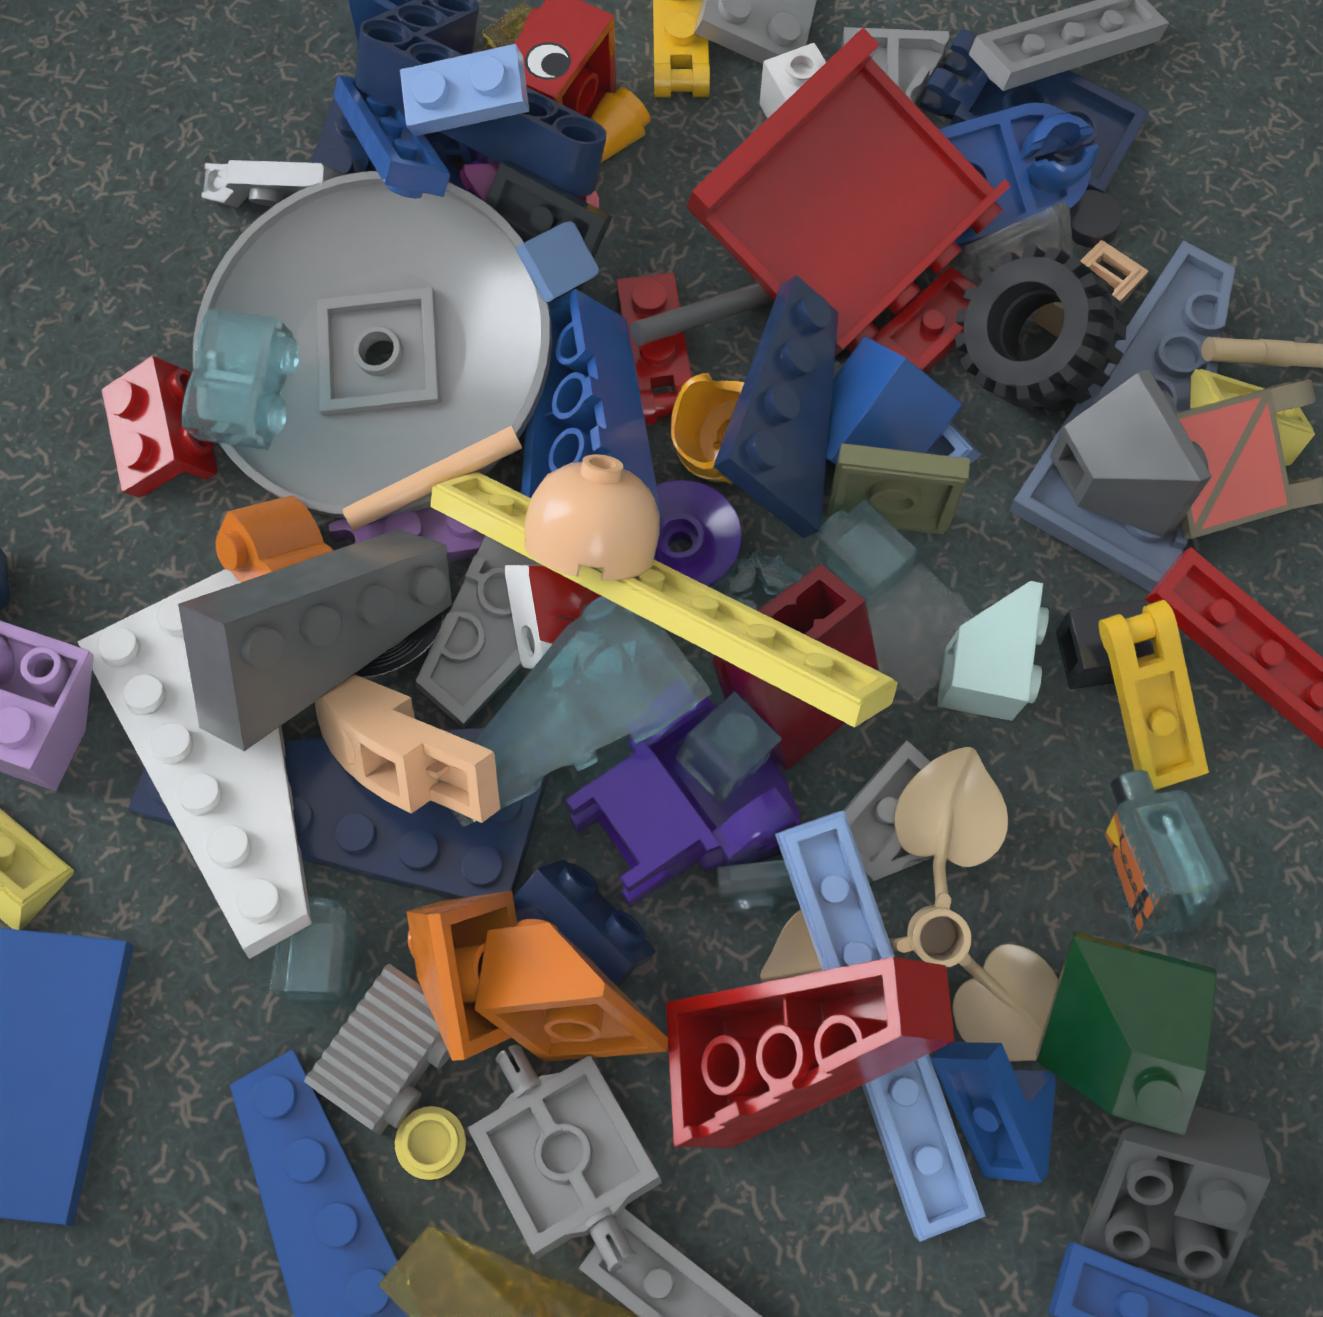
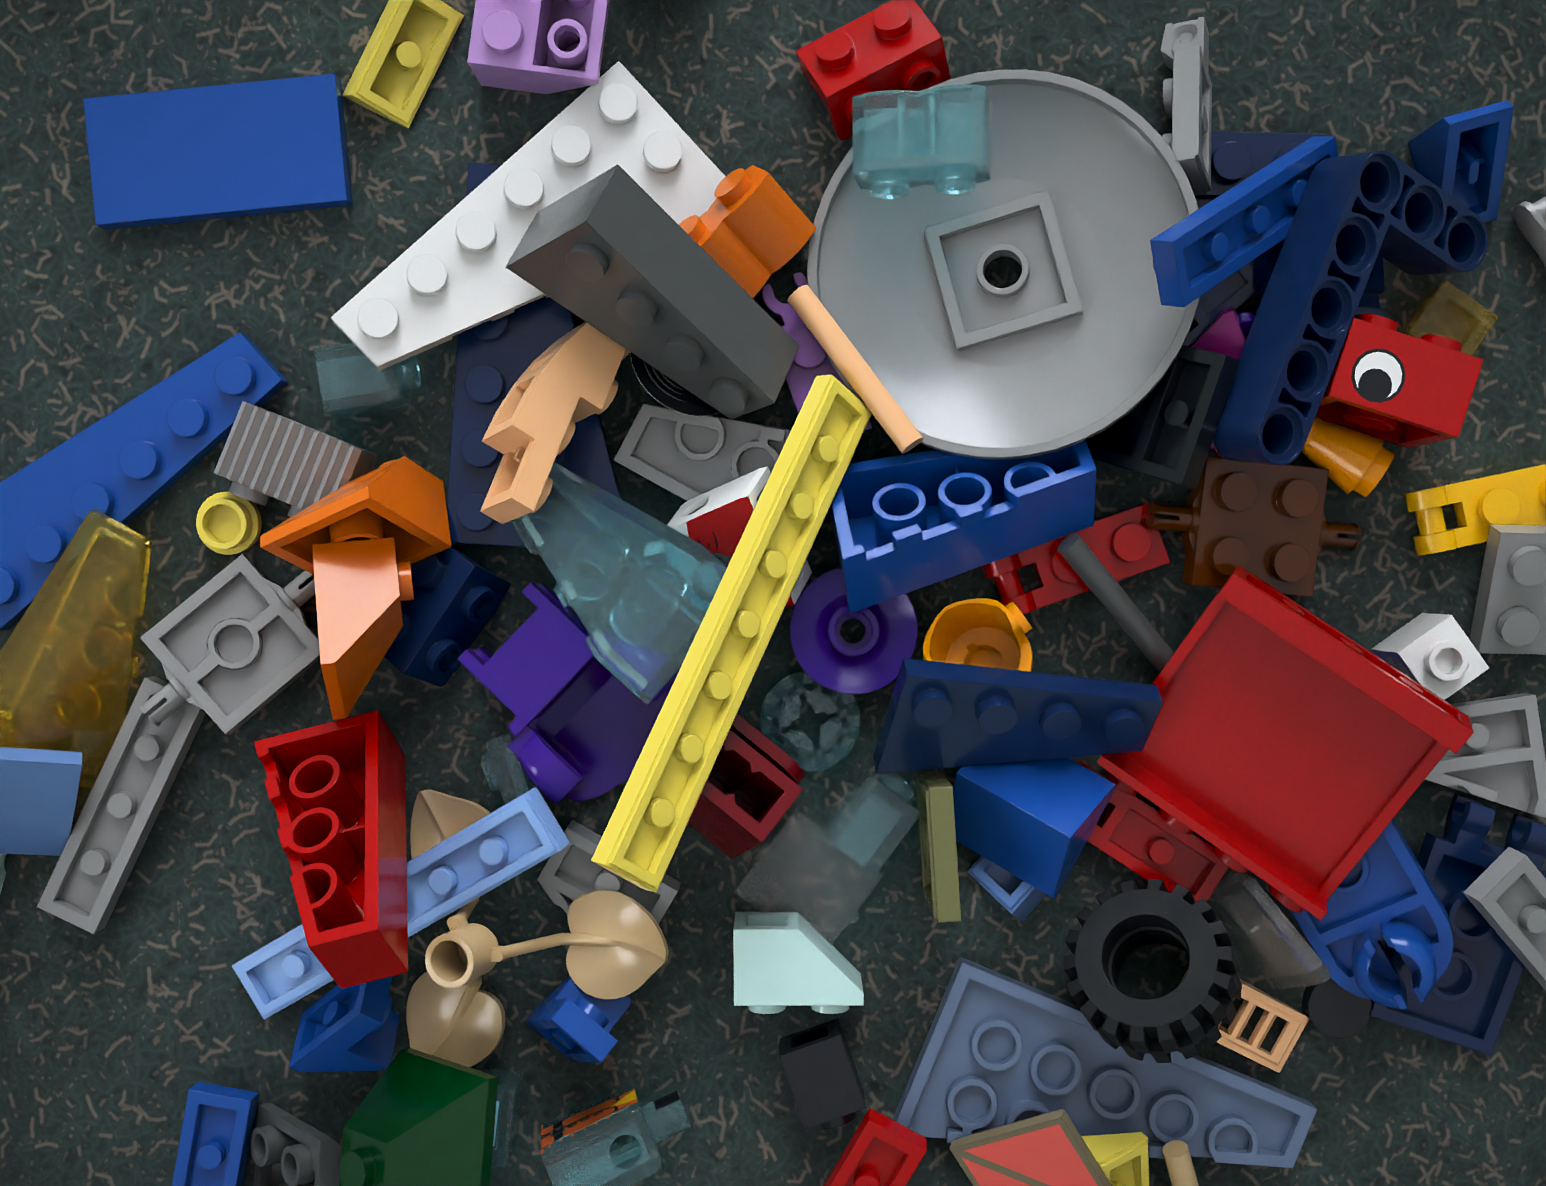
camera: 75 degrees right, 20 degrees up
(464, 90) = (1301, 295): light blue plate -> none
(558, 260) = (1126, 442): medium blue slope -> none
(593, 518) = (789, 554): light nougat cylinder -> none
(648, 203) = (1255, 518): none -> reddish brown plate
(728, 747) = (622, 725): clear light blue brick -> none
(1031, 867) = (578, 1022): none -> blue slope
(1132, 458) = (1009, 1086): dark grey slope -> none
(1155, 695) = (764, 1127): yellow plate -> none

